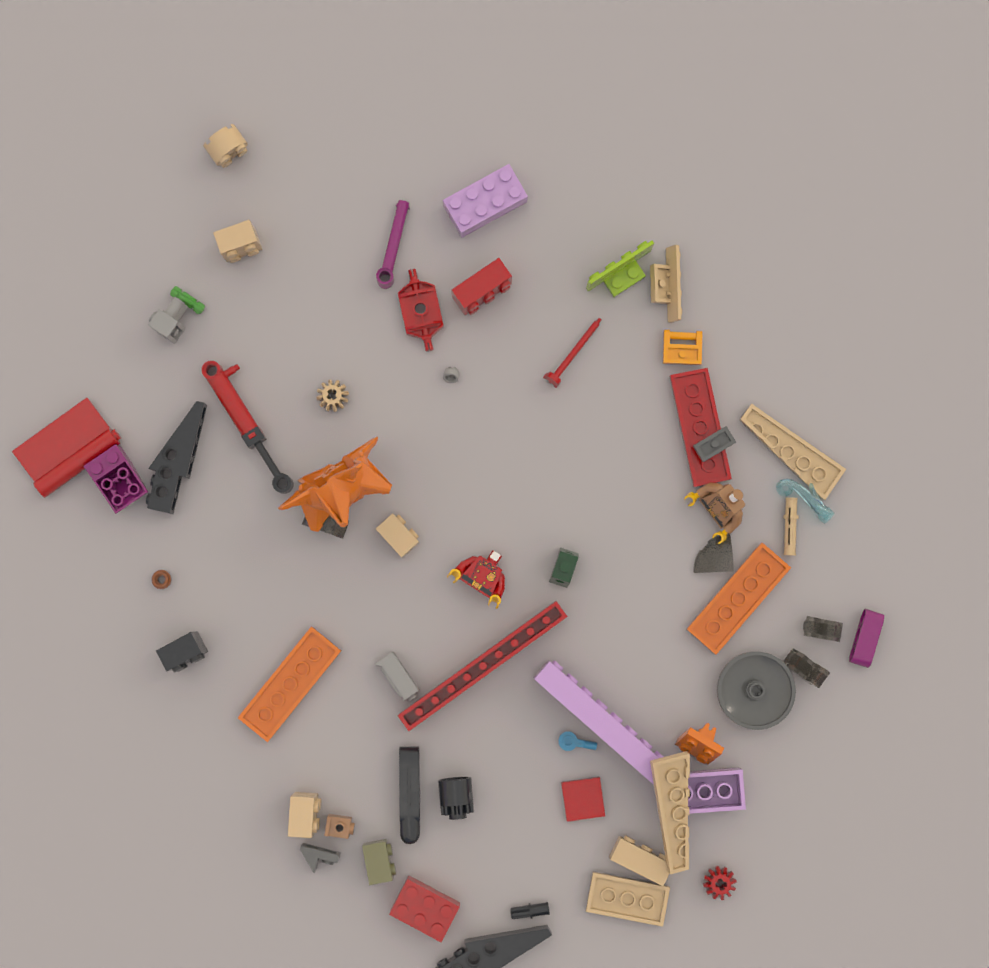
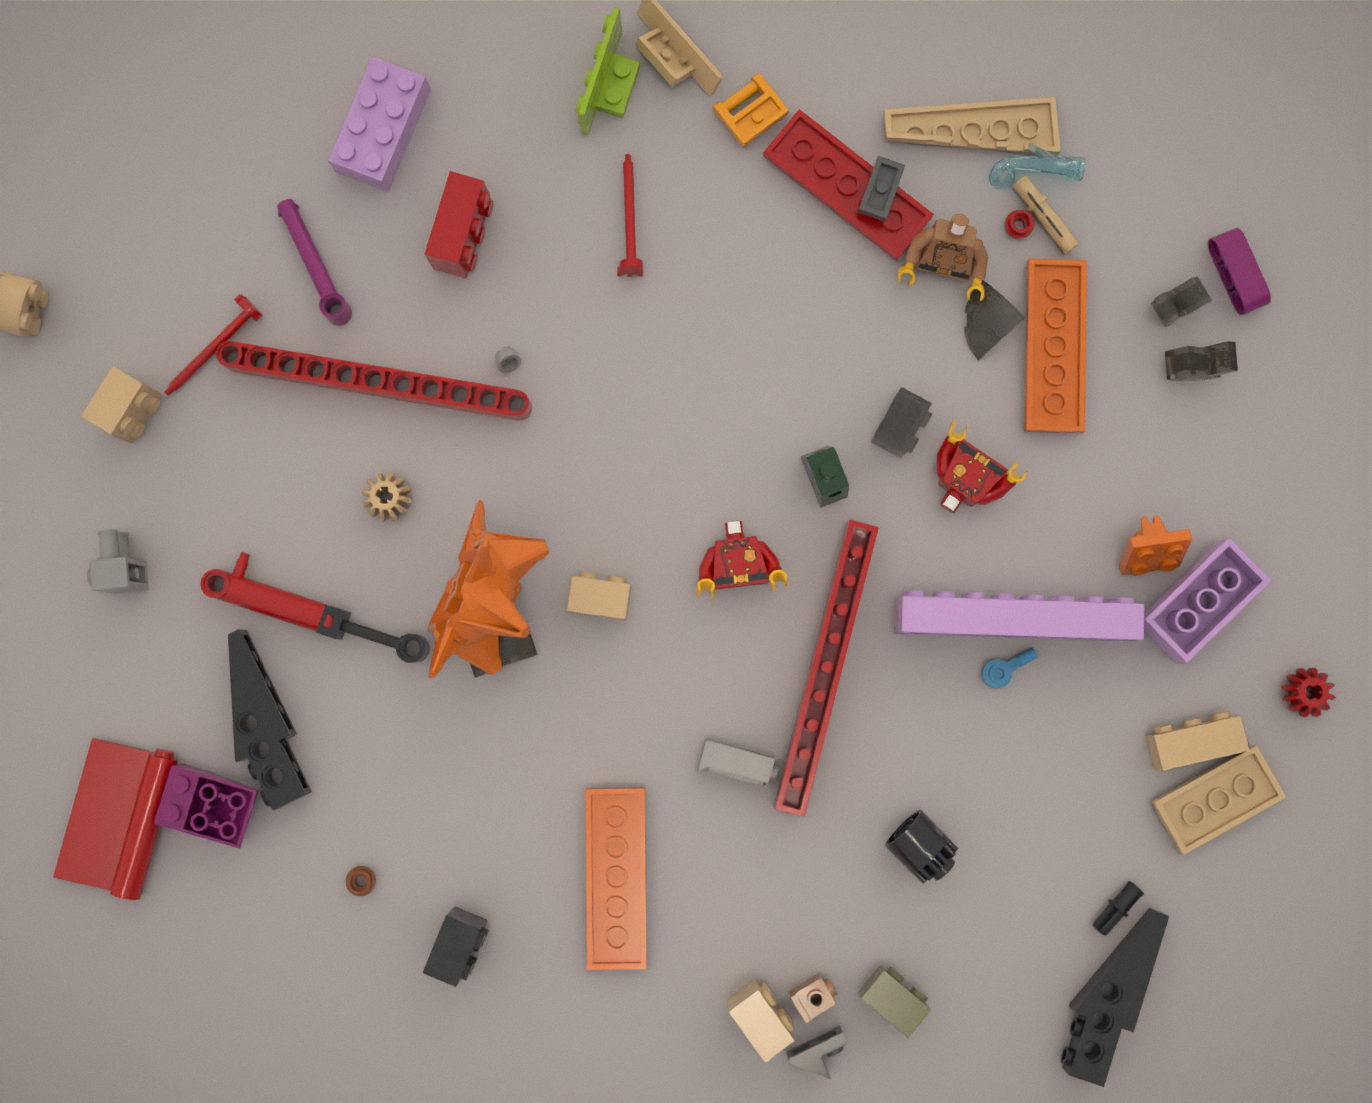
camera: 35 degrees left, 0 degrees up
(189, 301) = (122, 524): bright green axle -> none
(341, 243) = (249, 311): none -> red piece
(371, 322) = (362, 373): none -> red beam
(409, 794) = (864, 890): black piece -> none
(420, 325) = (420, 332): red plate -> none
(424, 908) = (994, 1010): red brick -> none
(583, 799) = (1070, 726): red tile -> none
(625, 573) = (902, 422): none -> clear smoke brick
(639, 628) = (970, 473): none -> red torso
(672, 793) = (1174, 633): tan wing -> none
(756, 690) = (1165, 434): dark grey dish -> none
(779, 520) = (1022, 216): none -> red plate

